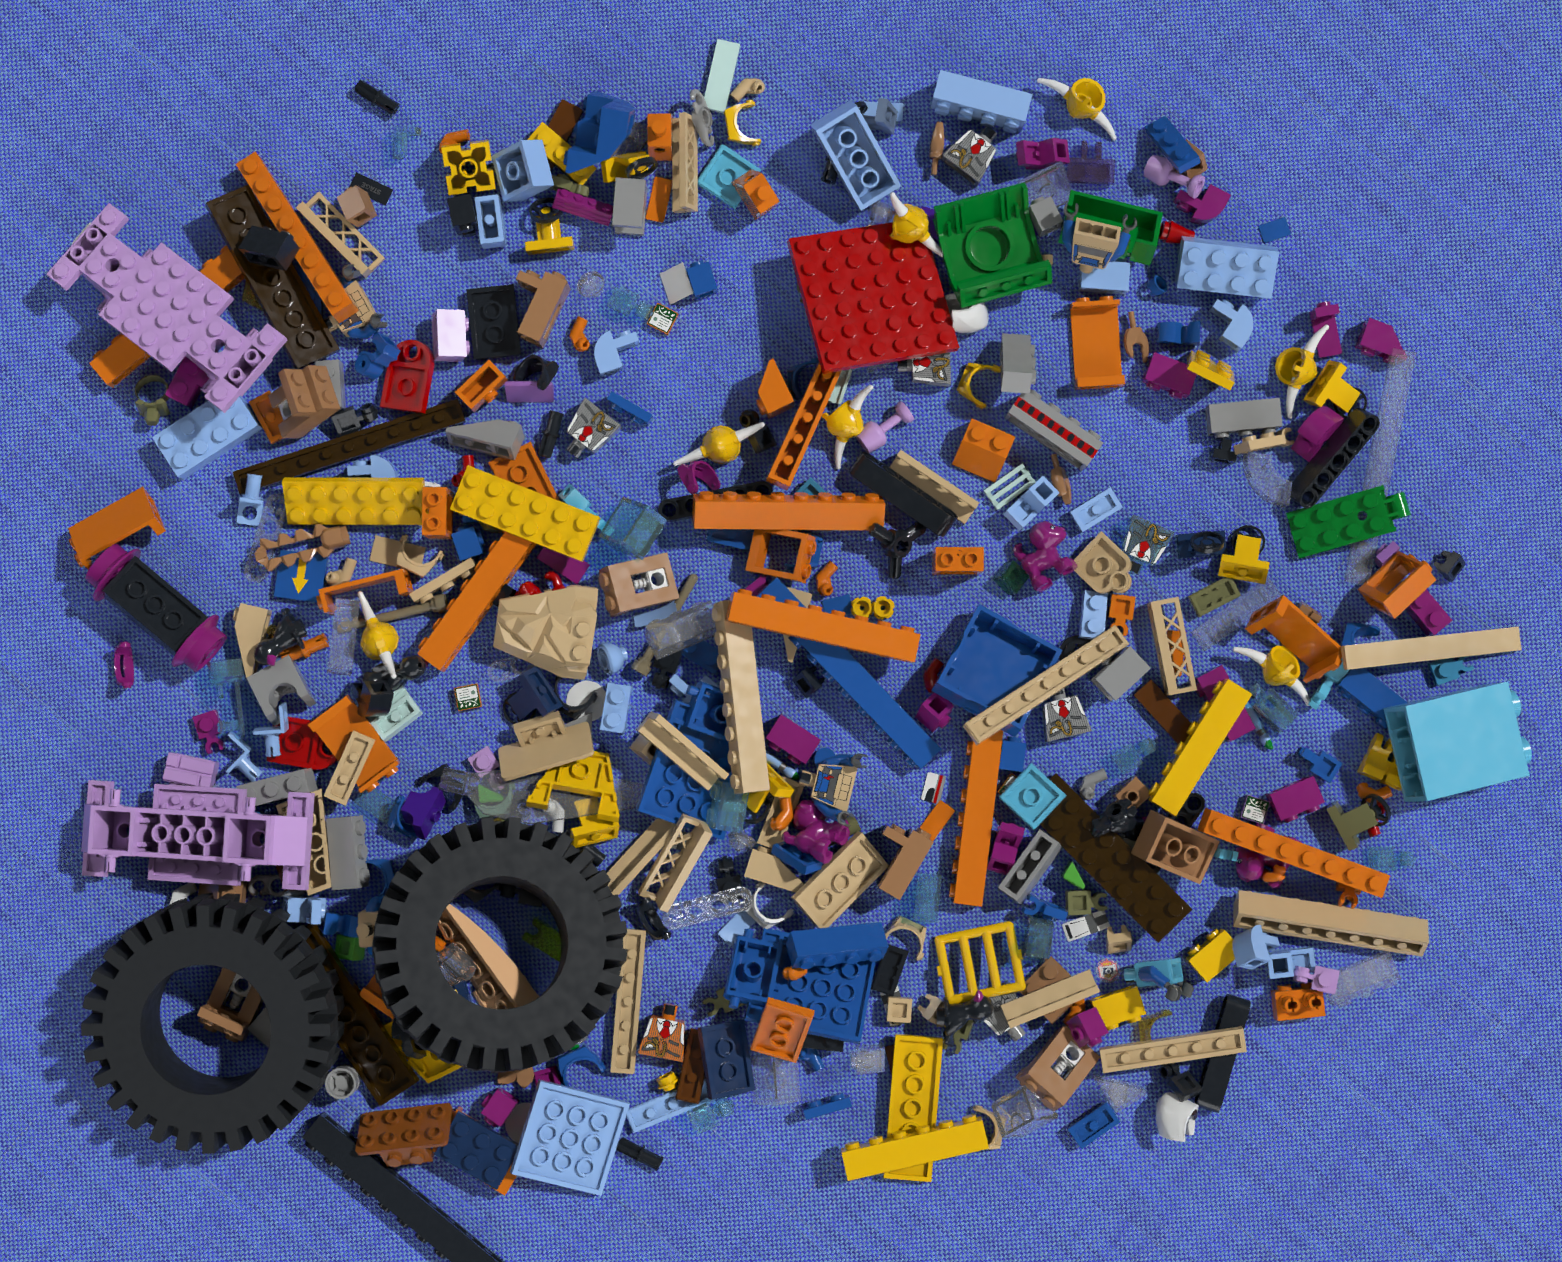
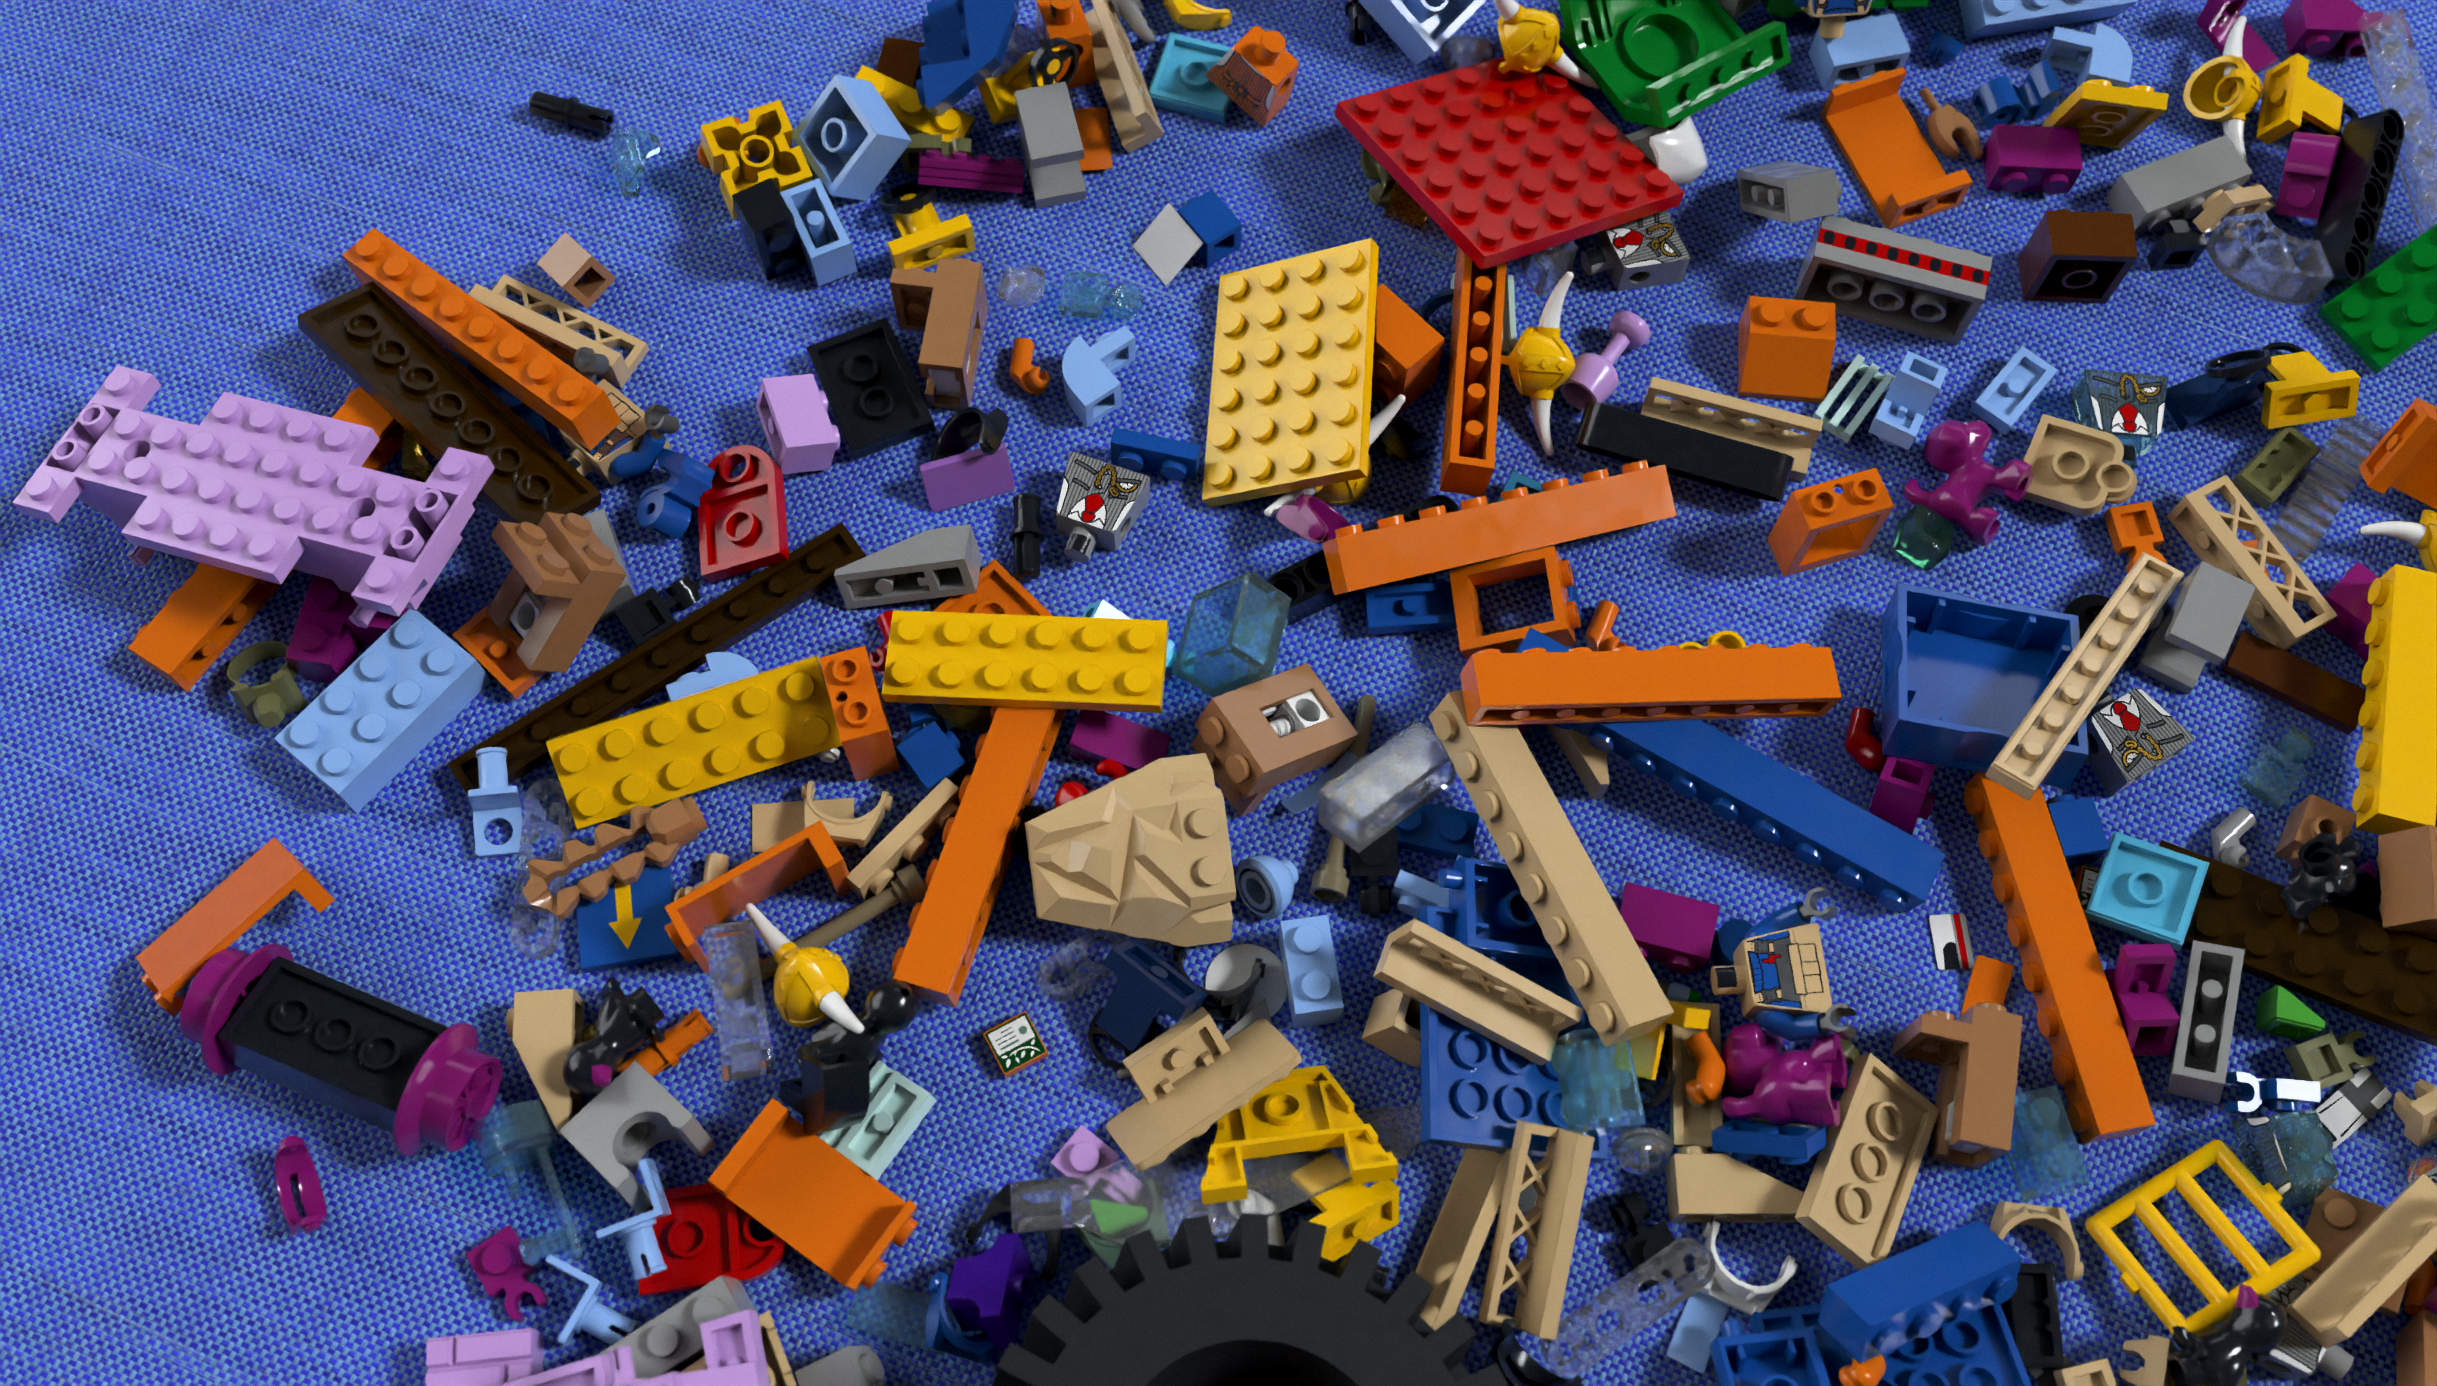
camera: 20 degrees left, 20 degrees down
(269, 247) = (428, 345): black brick -> none
(349, 767) = (816, 1248): tan plate -> none
(375, 190) = (607, 251): black sticker -> none
(482, 386) = (879, 487): orange brick -> none
(662, 319) = (1162, 307): tile -> none
(712, 388) = (1292, 375): none -> yellow plate
(807, 682) = (1646, 817): black tile -> none
(896, 544) = (1705, 536): black bush -> none
(964, 384) = (1709, 265): yellow helmet -> none
(1060, 480) = (1934, 352): medium nougat hand -> none
(1092, 614) = (2091, 554): light blue plate -> none
(1160, 446) = (2077, 256): none -> reddish brown brick

